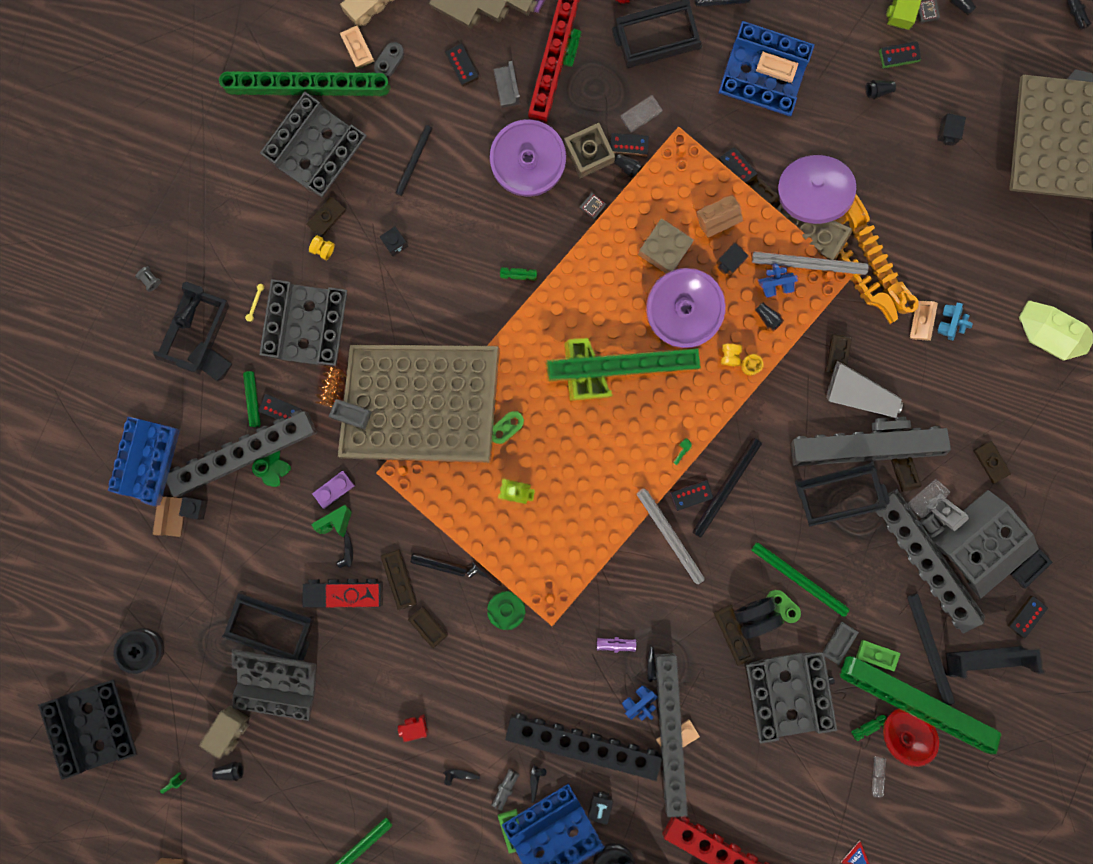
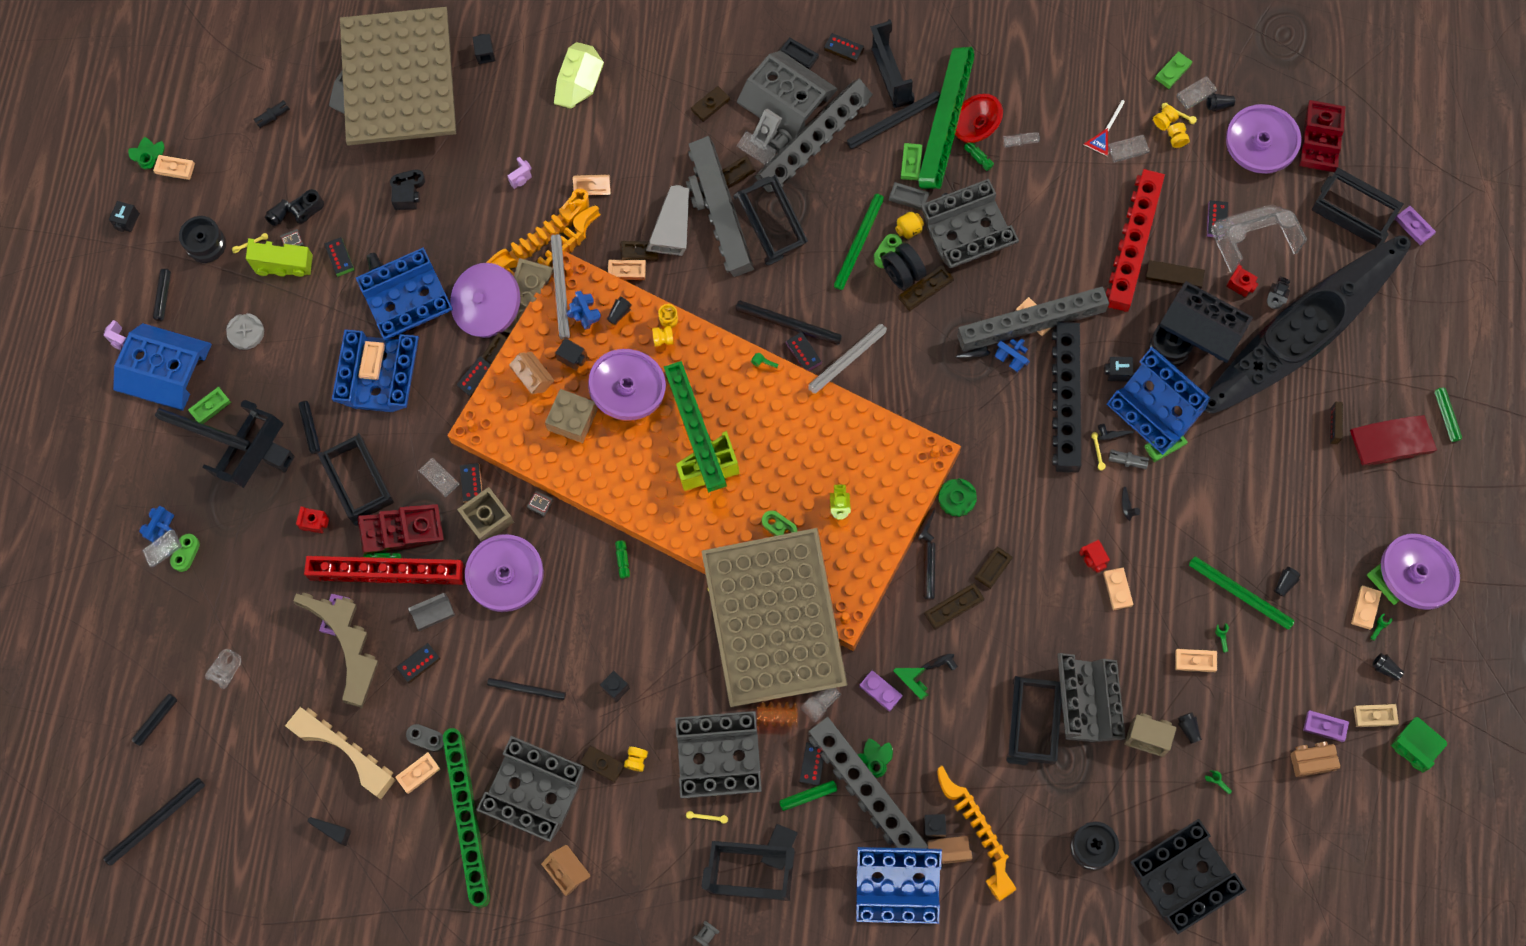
camera: 95 degrees left, 15 degrees down
(129, 554) = (999, 883): none -> light orange piece
(185, 316) = (738, 879): black cone -> none
(237, 166) = (565, 869): none -> medium nougat panel
(290, 796) = (1195, 660): none -> light nougat plate
(308, 829) = (1222, 634): none -> green hand
(331, 428) = (817, 705): none -> clear piece
(343, 593) = (982, 655): brick -> none
(350, 414) = (801, 683): dark grey tile -> none
(378, 742) = (1118, 588): none -> light nougat plate
(505, 760) = (1101, 466): none -> light yellow hinge
(596, 68) = (400, 529): none -> dark red slope
(616, 644) = (963, 388): medium lavender pin -> none
(628, 165) = (493, 476): black cone -> none
(806, 635) = (909, 225): none -> yellow head
(820, 337) = (628, 269): none -> light nougat plate
(855, 111) = (401, 285): none -> blue slope
(950, 251) = (520, 175): none -> lavender bracket
(955, 313) = (579, 159): dark azure hips -> none
(963, 25) = (305, 205): none -> black piece
(973, 136) = (408, 178): none -> black beam

